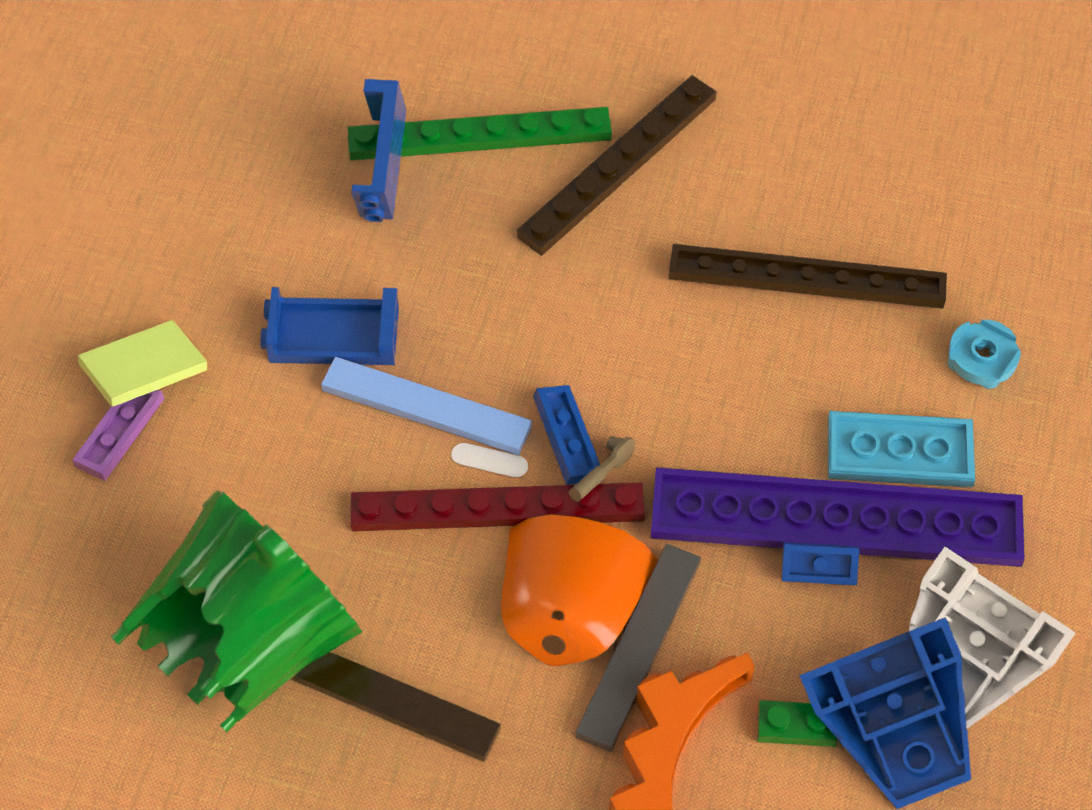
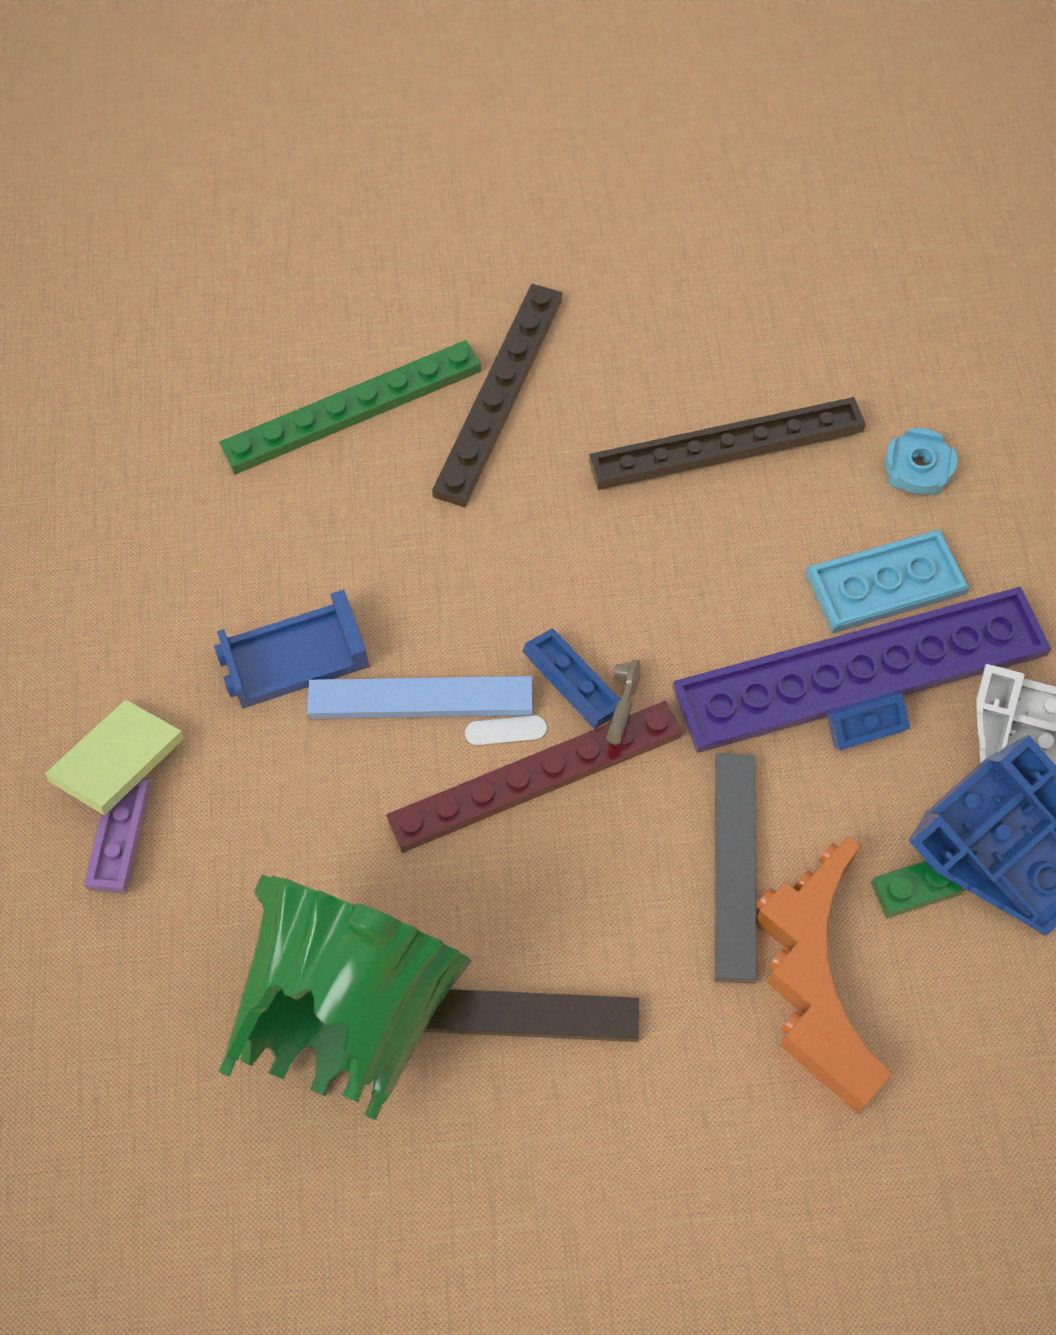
camera: 20 degrees left, 5 degrees up
(385, 105) = (255, 407): blue panel -> none
(572, 568) = (641, 816): orange piece -> none

